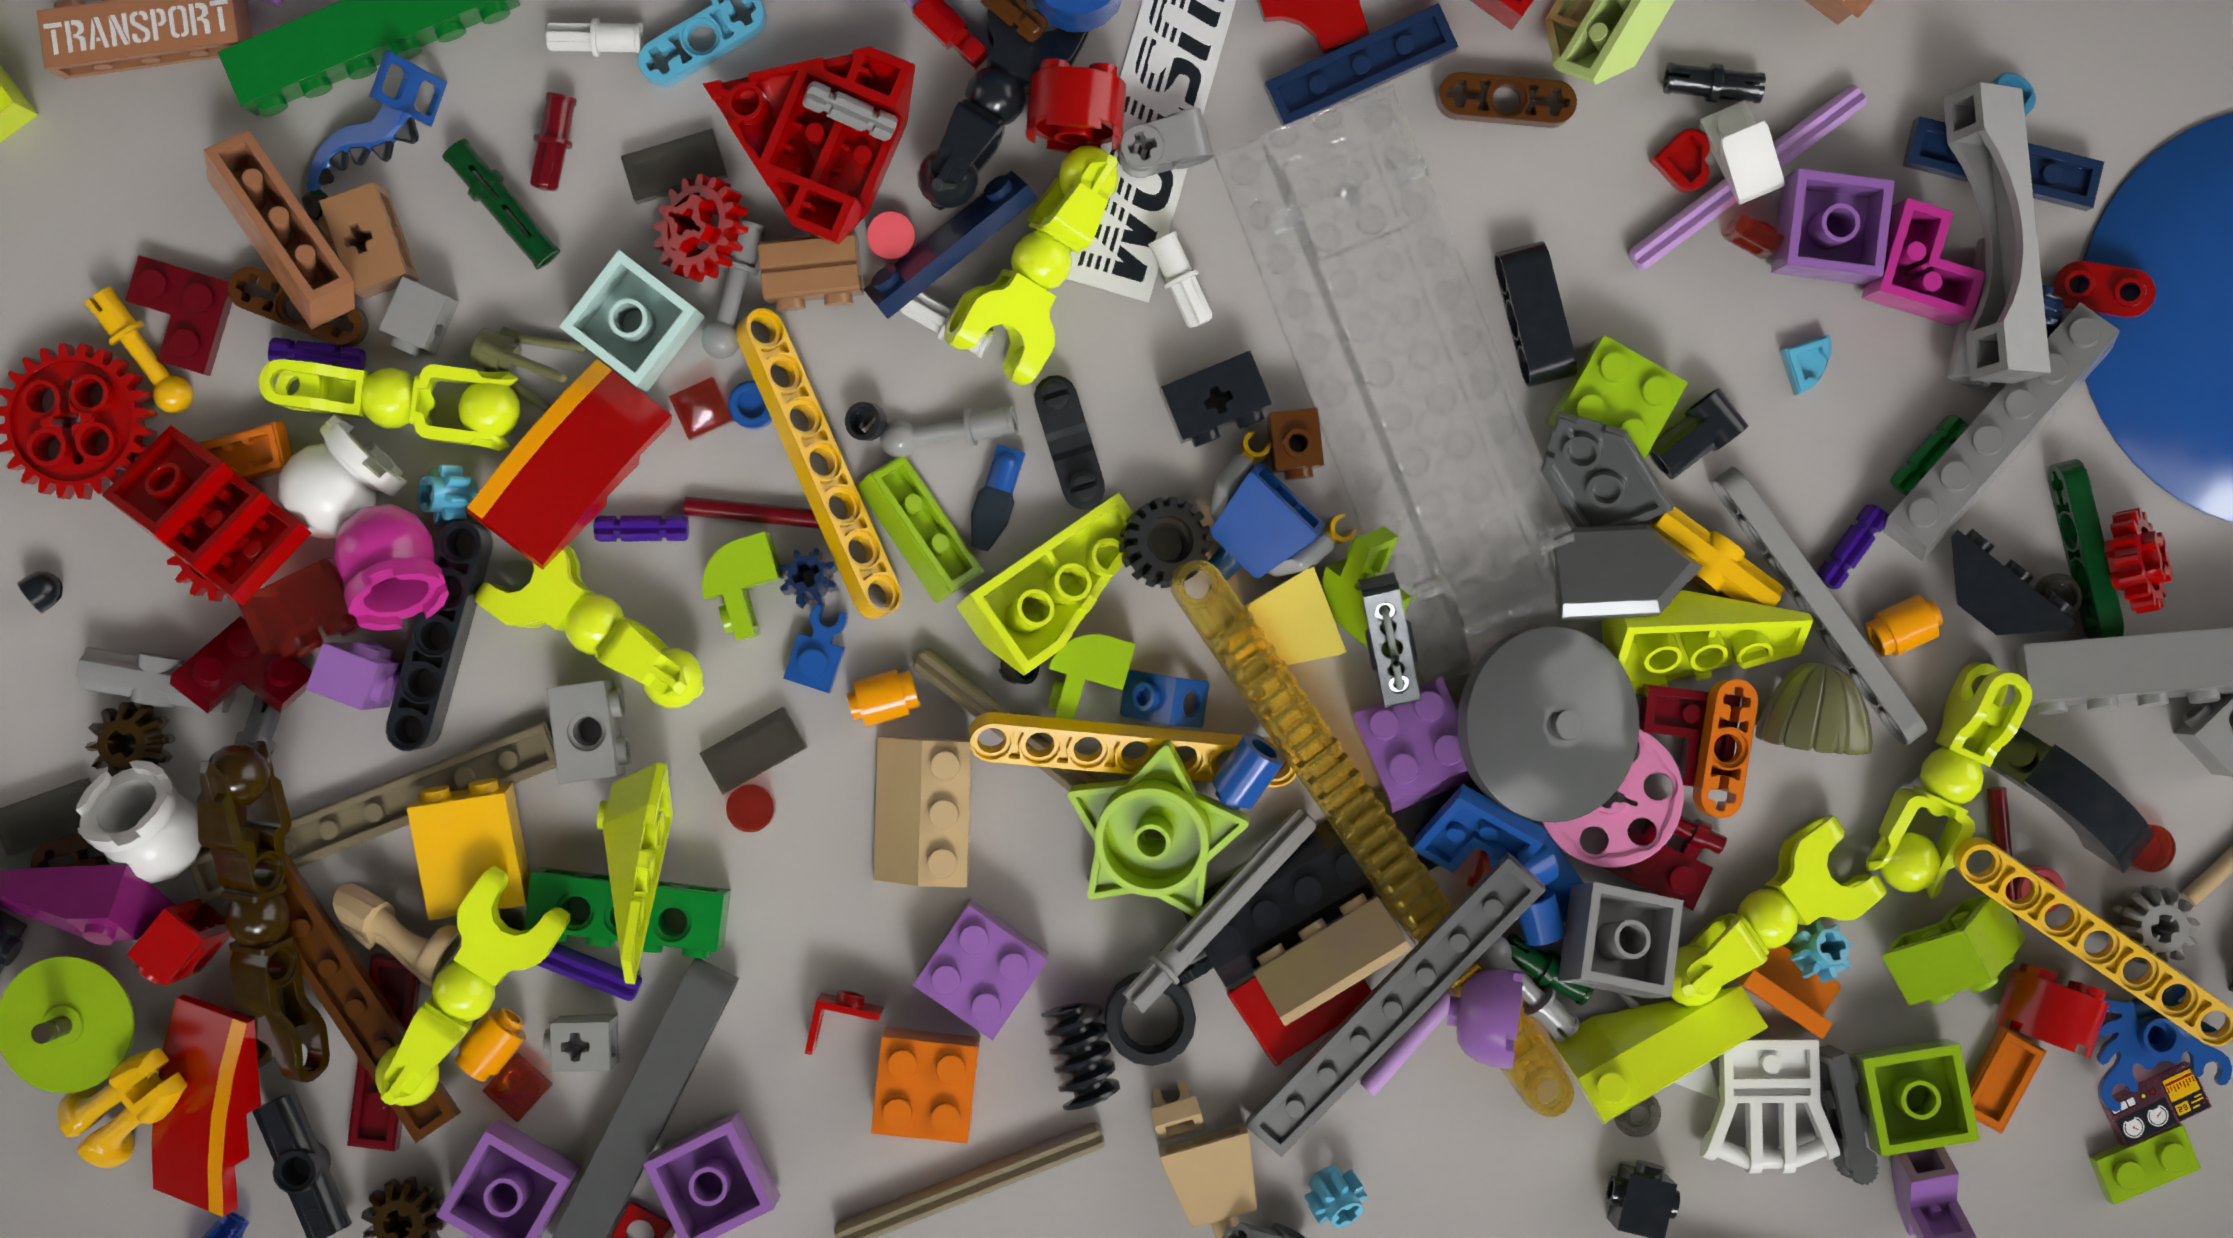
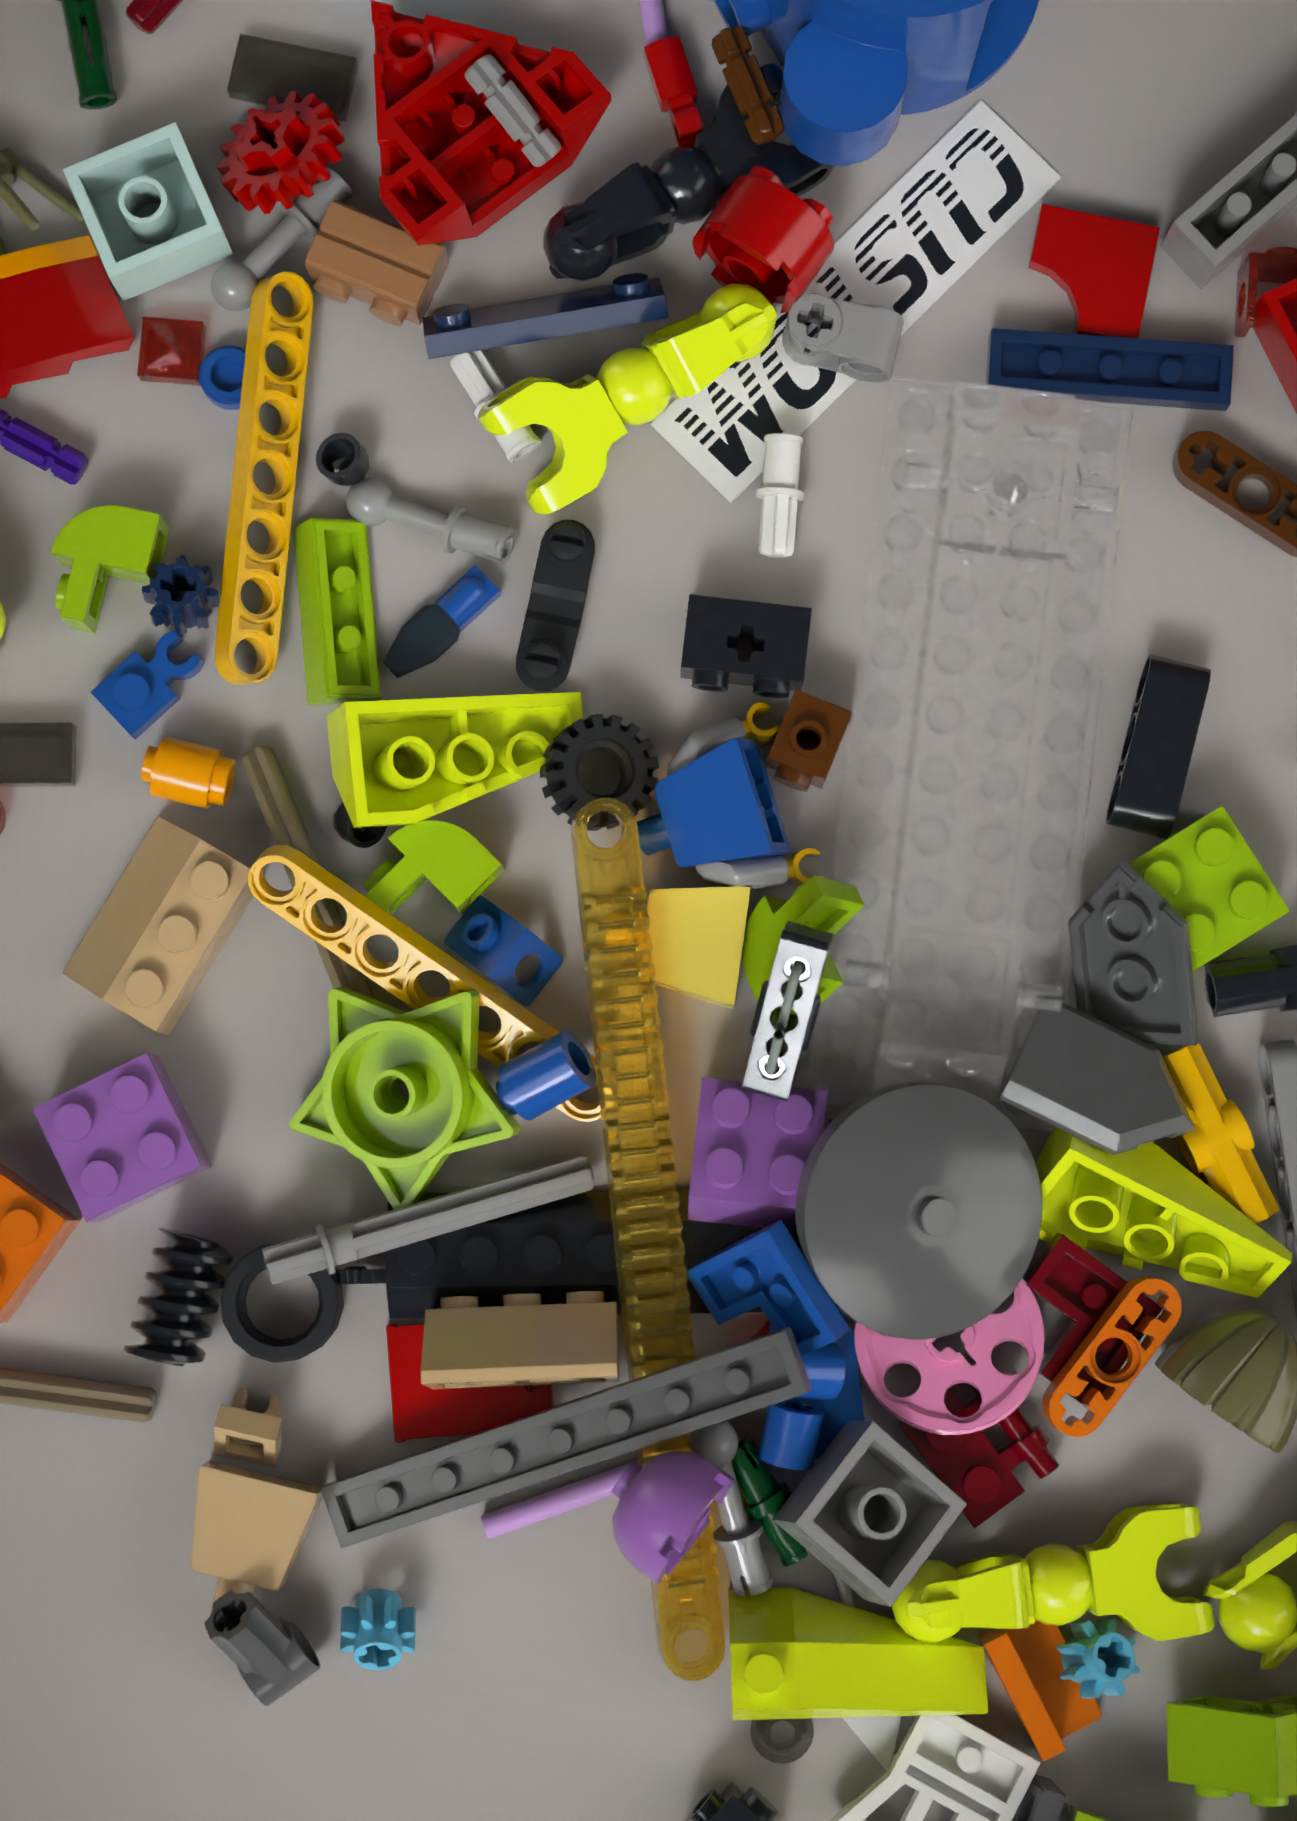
camera: 30 degrees right, 5 degrees down
(749, 512) = (158, 491): dark red bar -> none
(891, 236) = (485, 276): coral tile -> none

